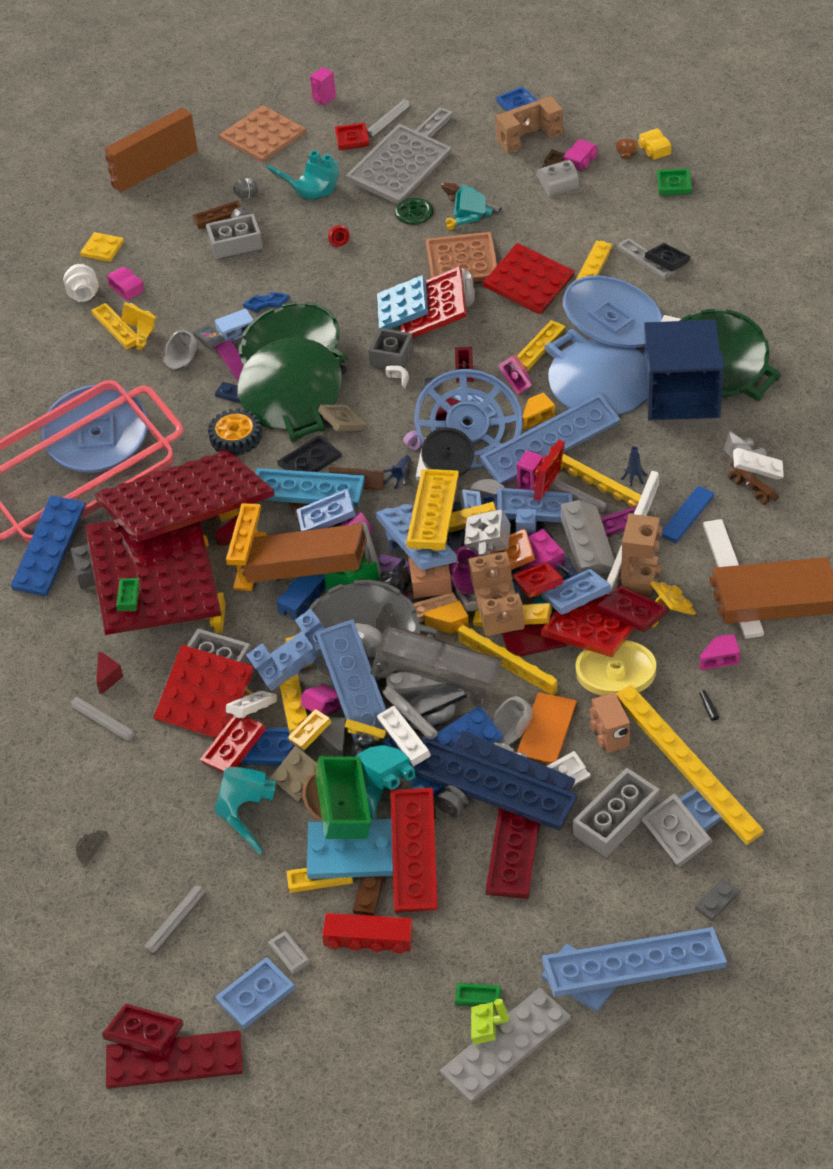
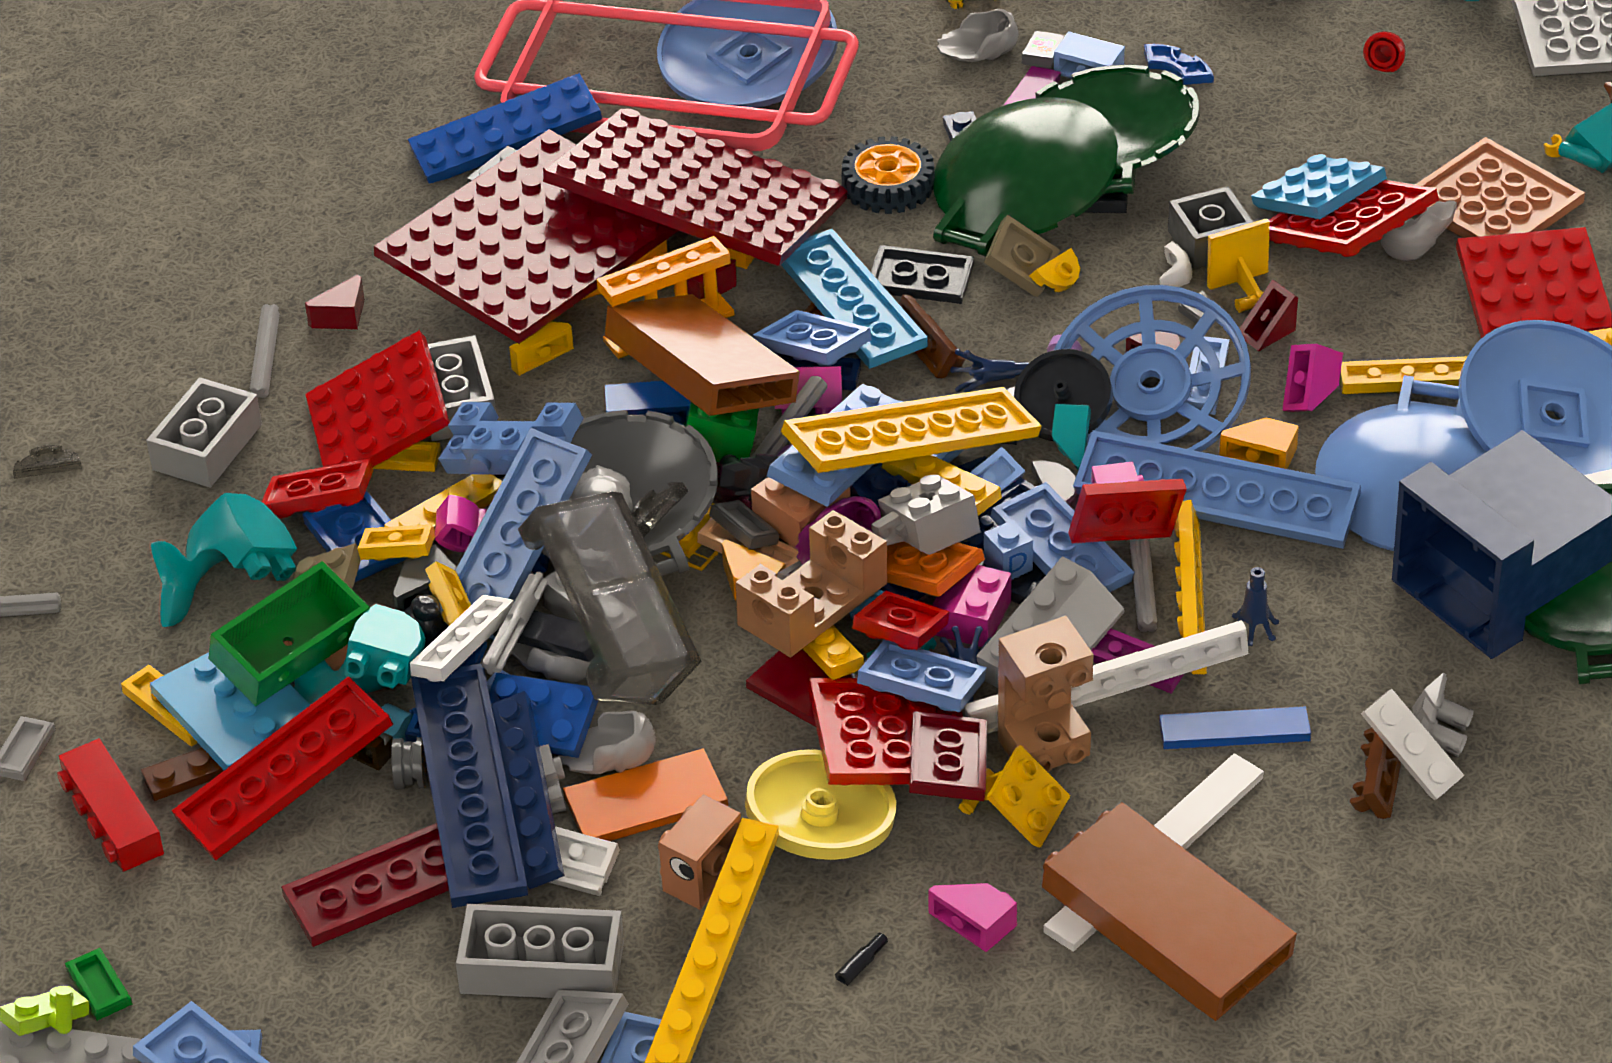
camera: 50 degrees right, 5 degrees down
(128, 594) = (446, 227): green plate -> none
(145, 768) = (204, 432): none -> light grey brick
(251, 703) = (397, 463): white plate -> none
(362, 412) = (1059, 272): none -> yellow plate
(413, 211) = (1539, 97): dark green plate -> none
(422, 356) = (1239, 257): none -> yellow plate
(424, 600) = (744, 524): none -> dark grey tile
(472, 464) = (1071, 431): none -> teal slope
(509, 661) = (732, 692): yellow plate -> none

